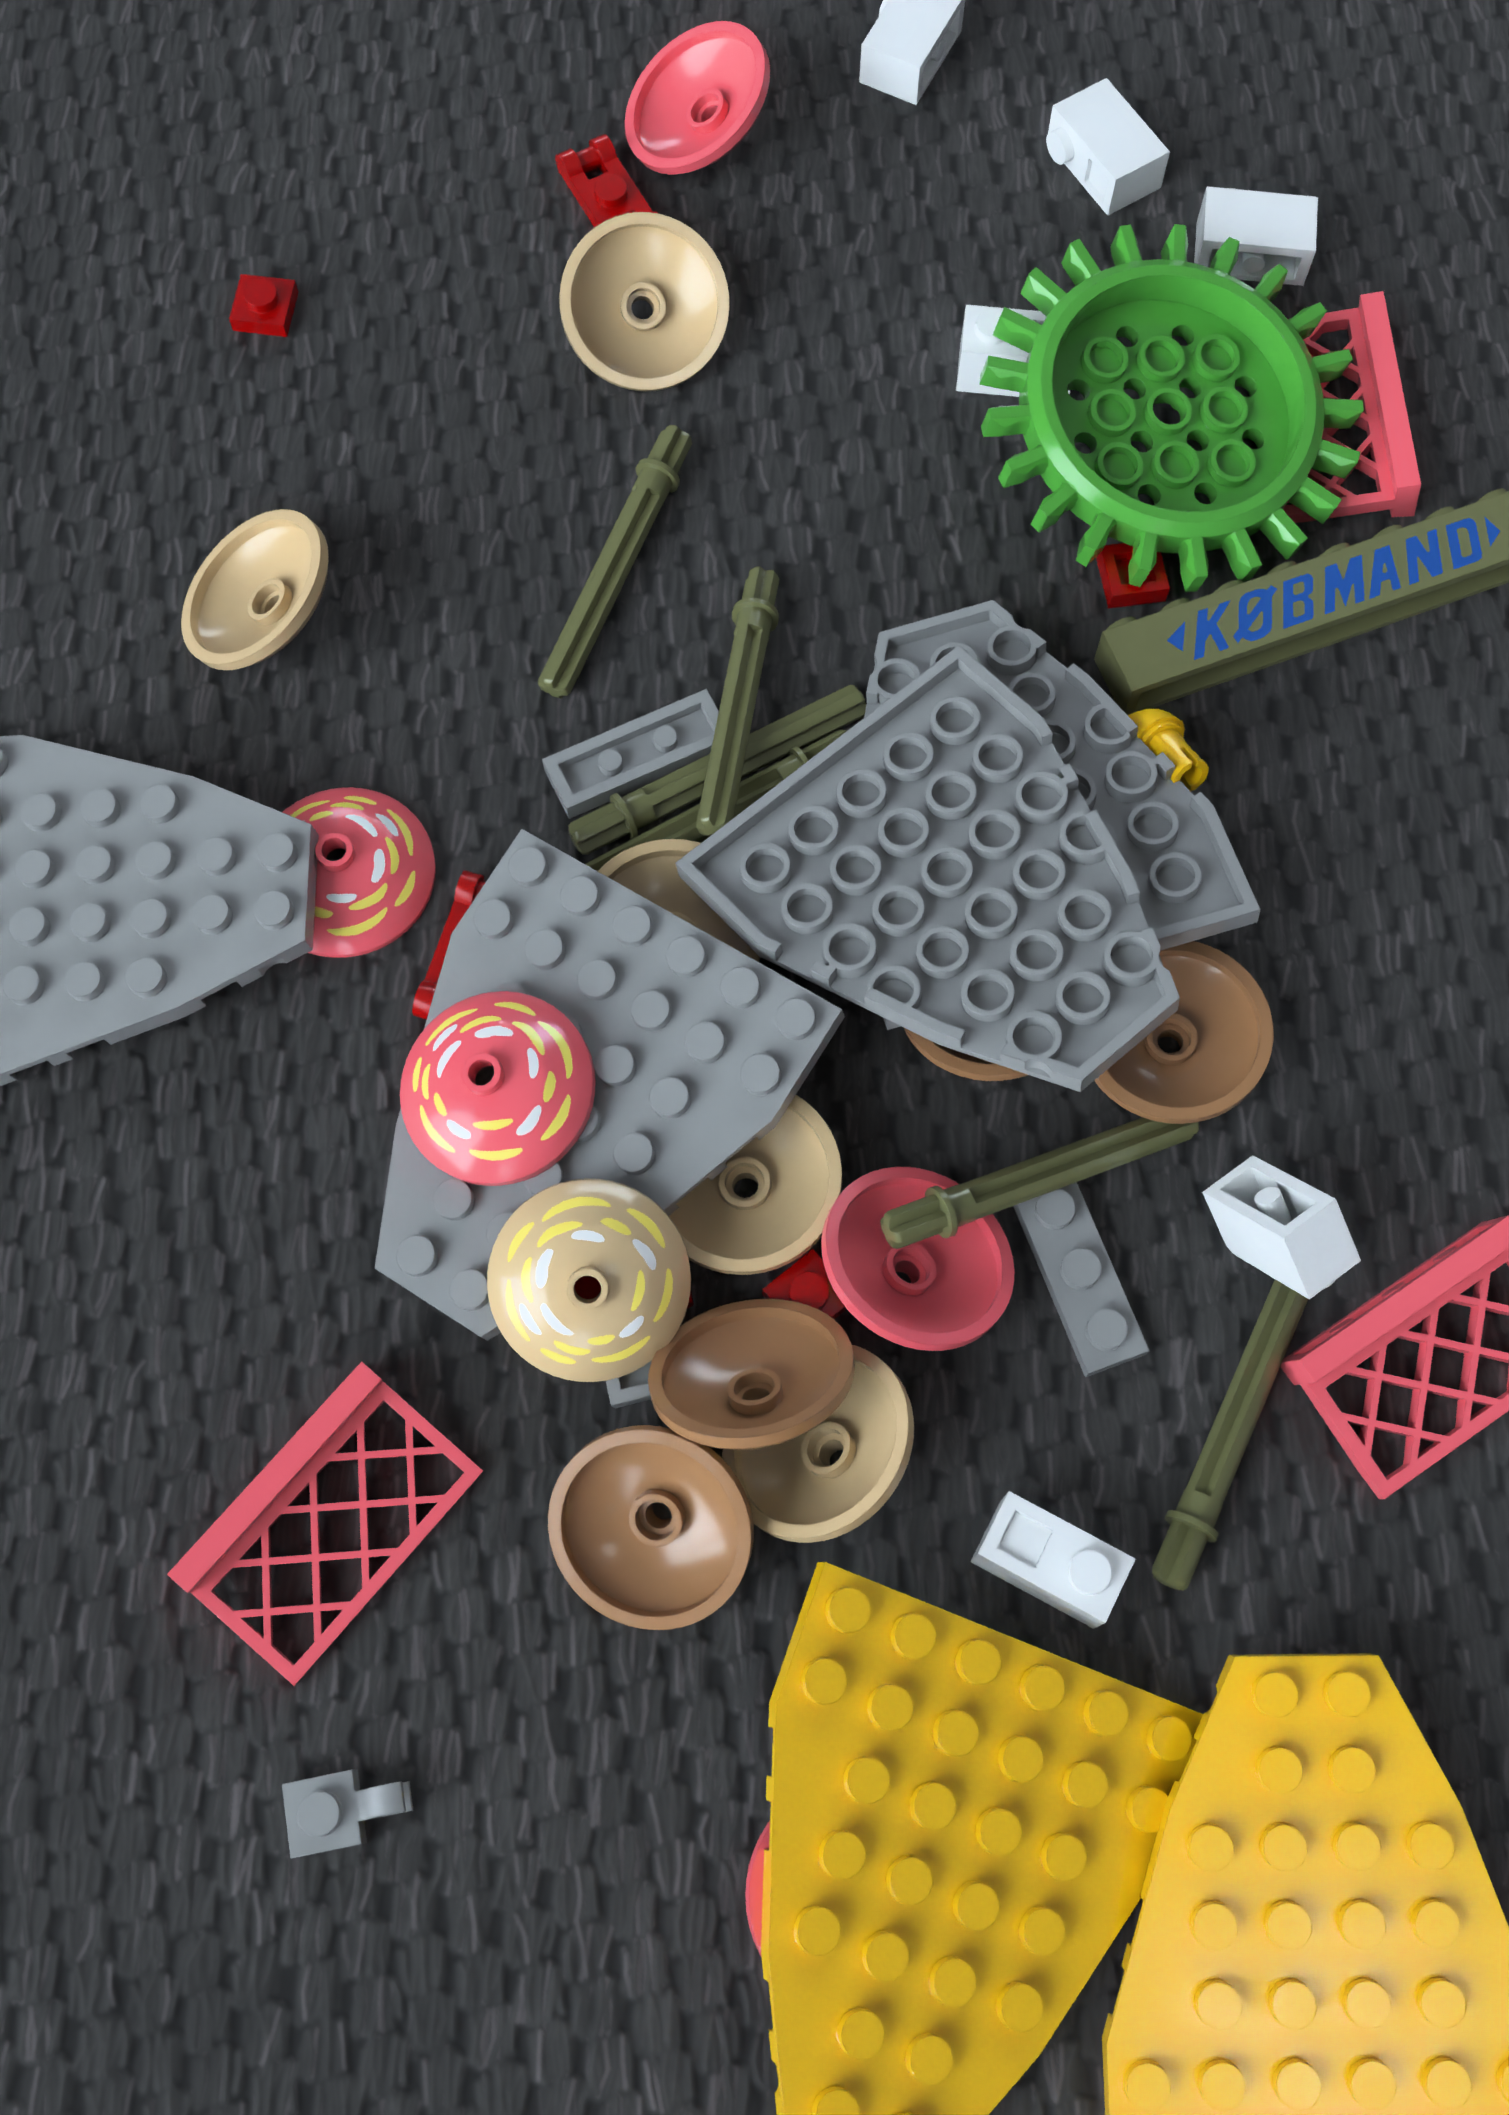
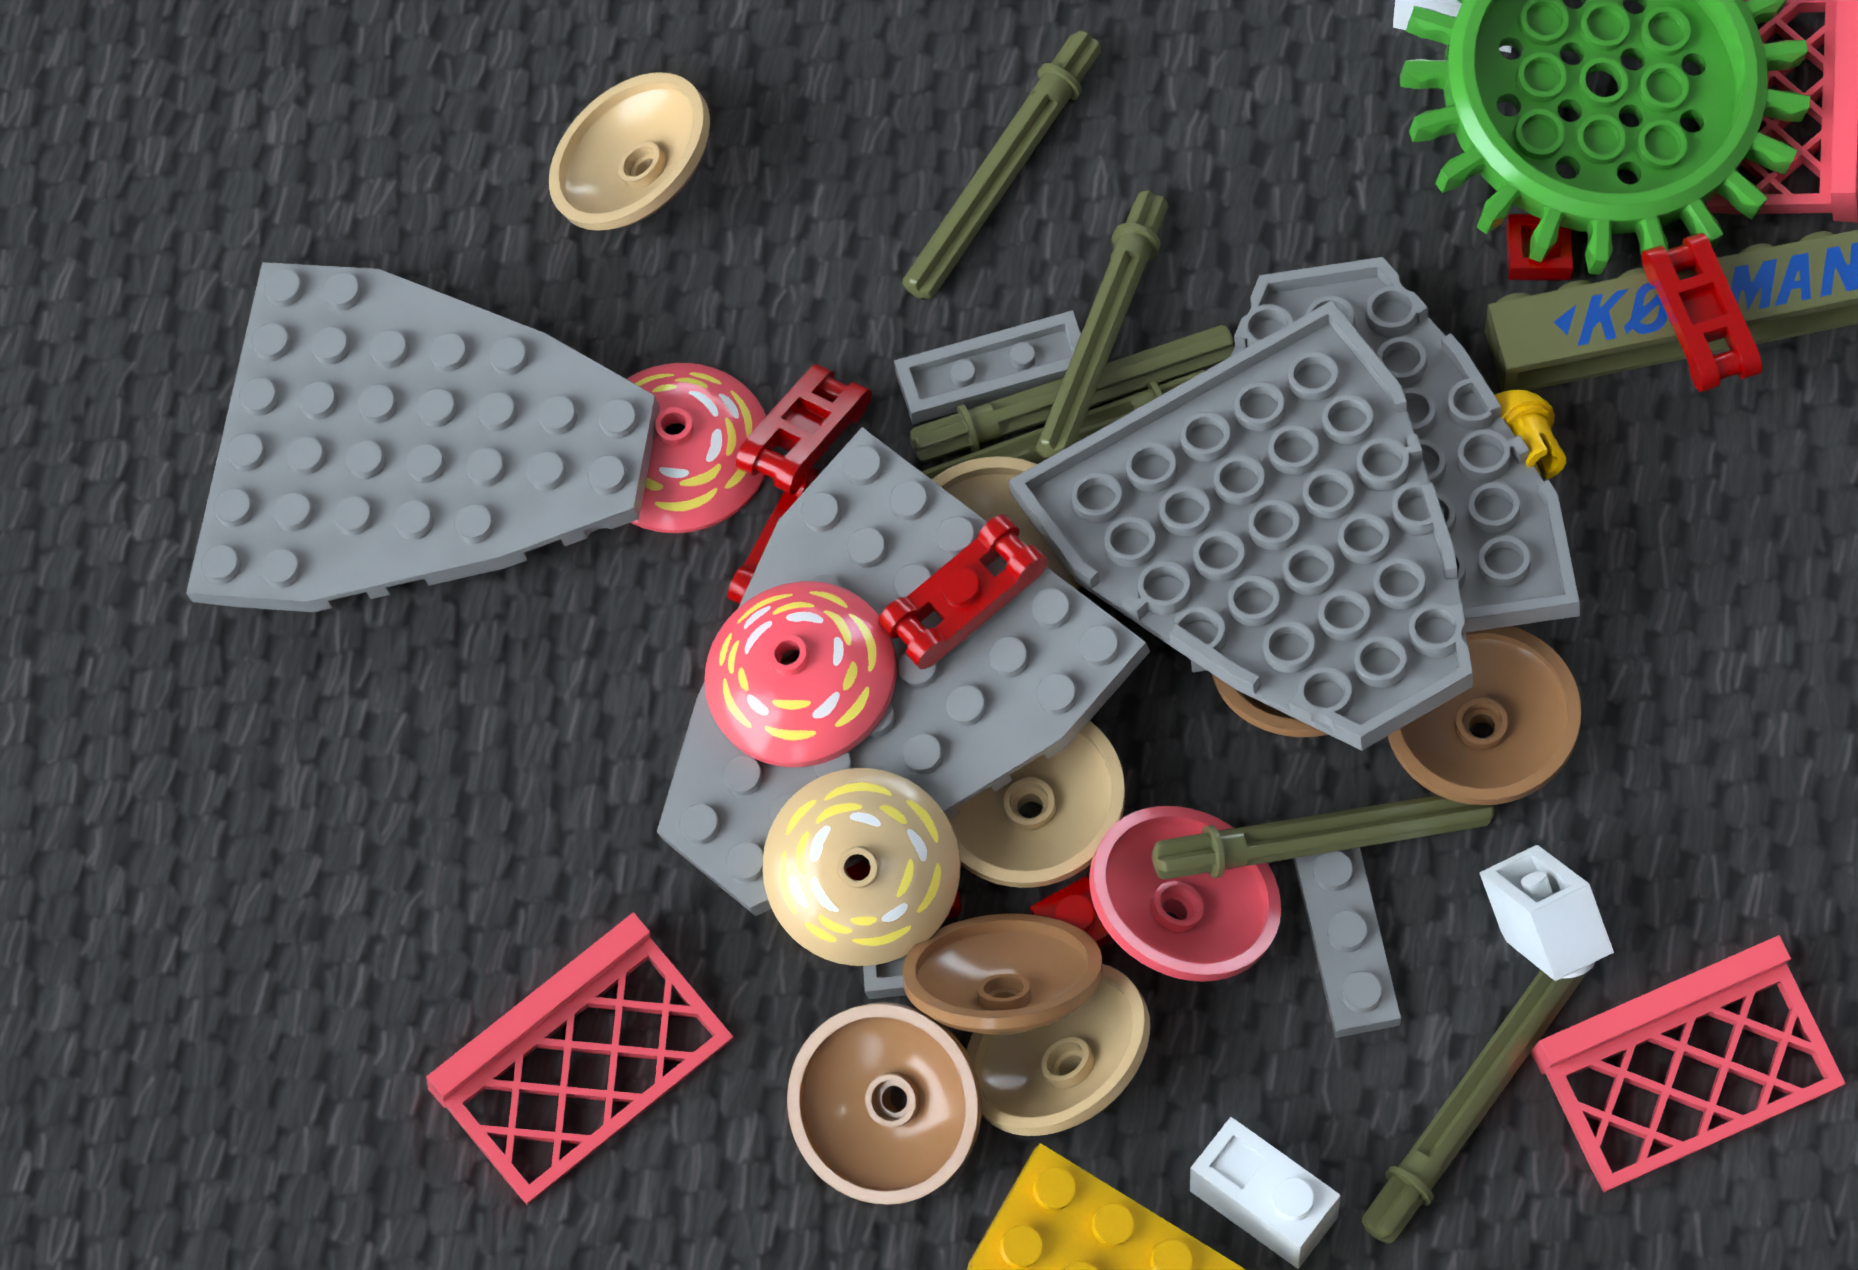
camera: 15 degrees right, 5 degrees down
(462, 833) = (804, 425): none -> red plate
(650, 984) = (963, 592): none -> red plate
(1309, 611) = (1702, 311): none -> red plate

